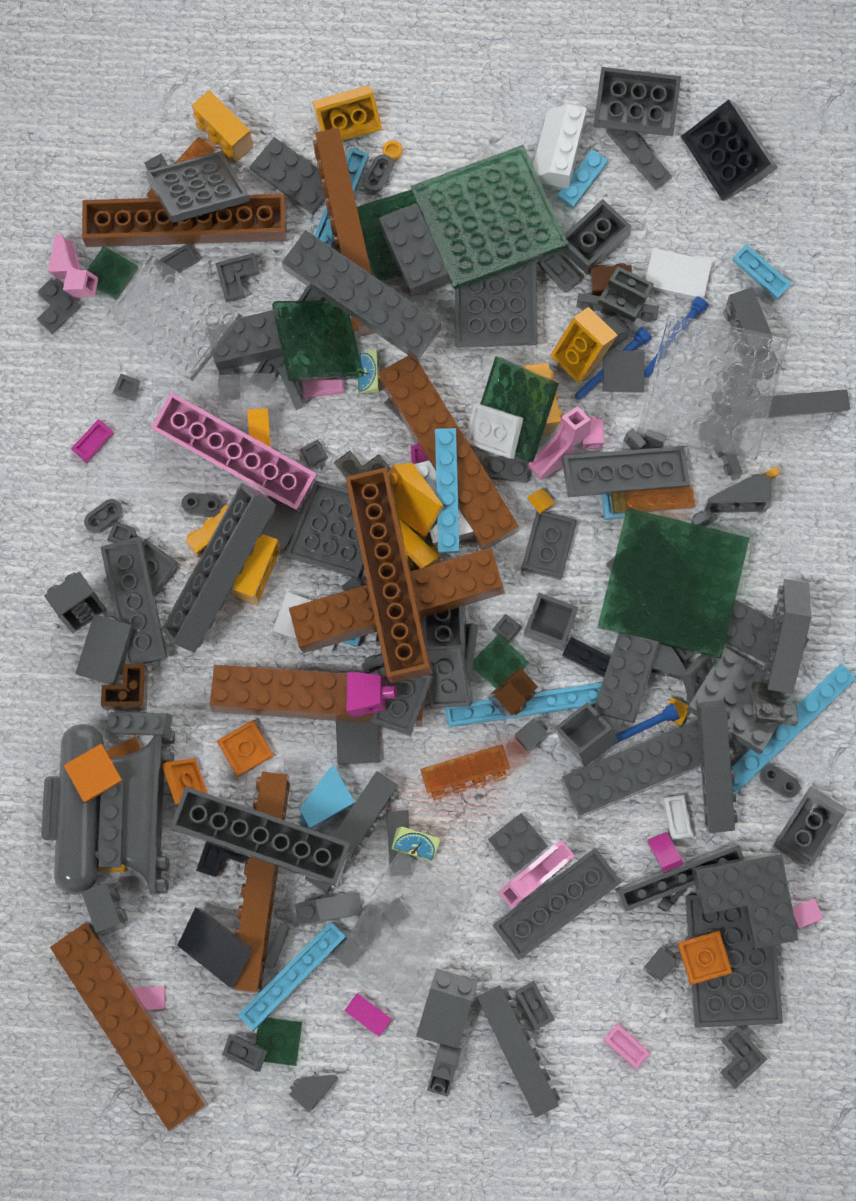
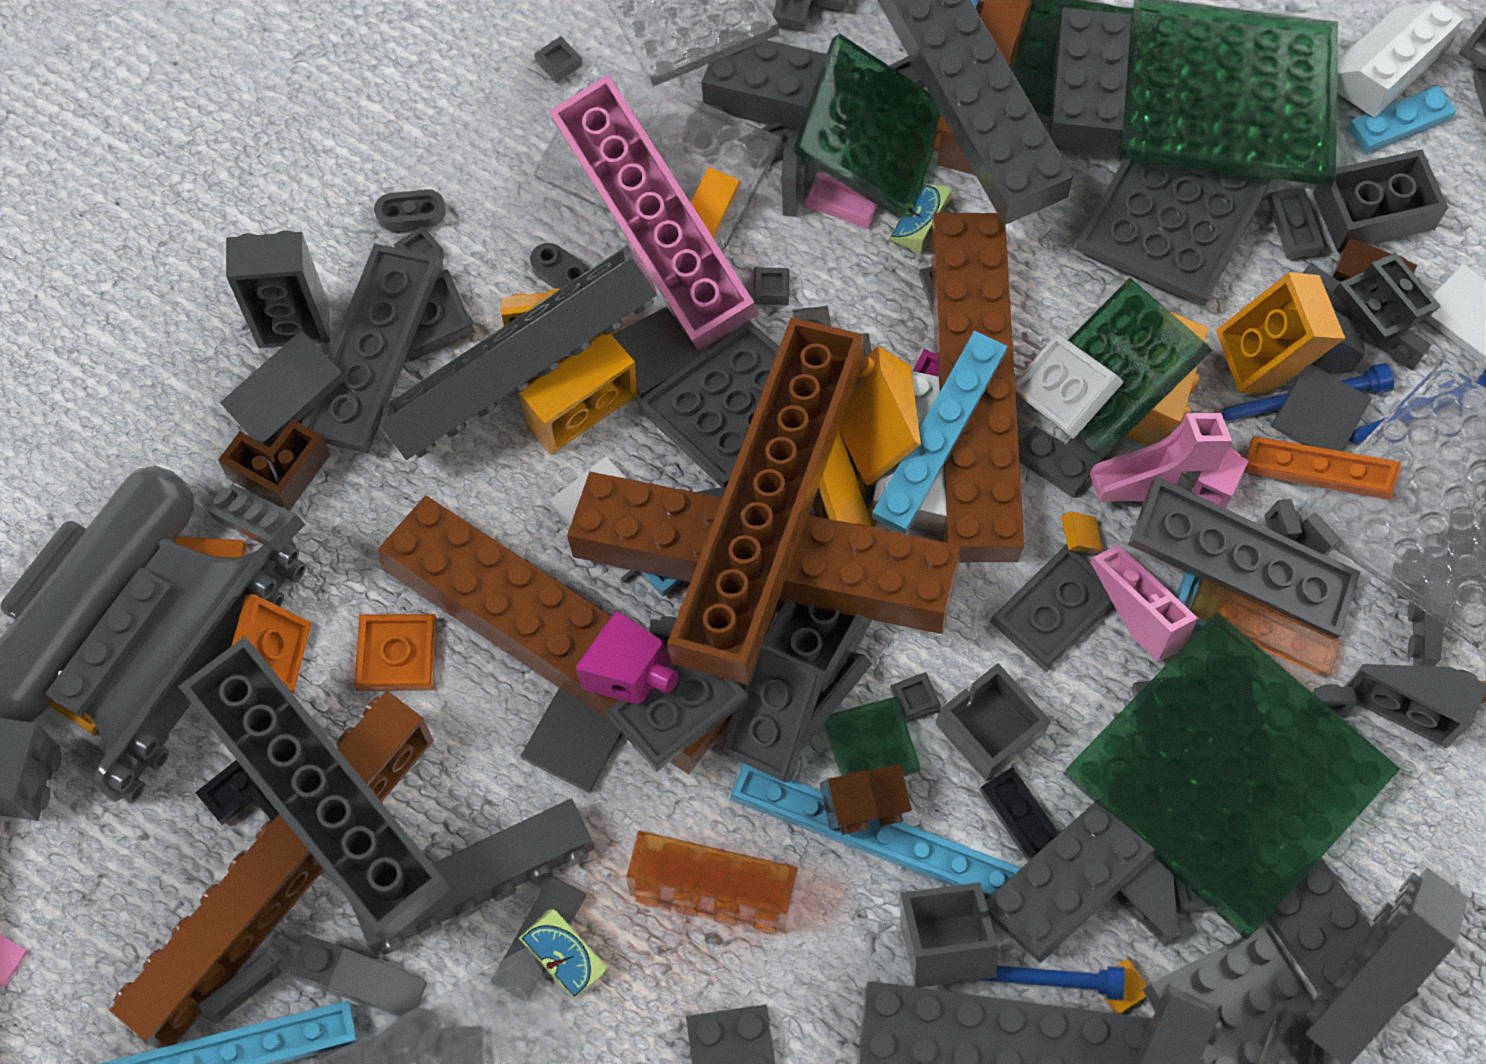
camera: 25 degrees right, 10 degrees down
(92, 441) = (464, 106): dark pink tile -> none
(93, 773) = (131, 546): orange tile -> none
(214, 947) = (134, 930): black tile -> none
(326, 800) = (465, 801): medium azure slope -> none
(532, 734) = (858, 886): dark grey brick -> none
(591, 522) = (1146, 607): none -> bright pink slope
(638, 402) = (1323, 467): none -> orange tile
(695, 675) = (1190, 941): dark grey plate -> none

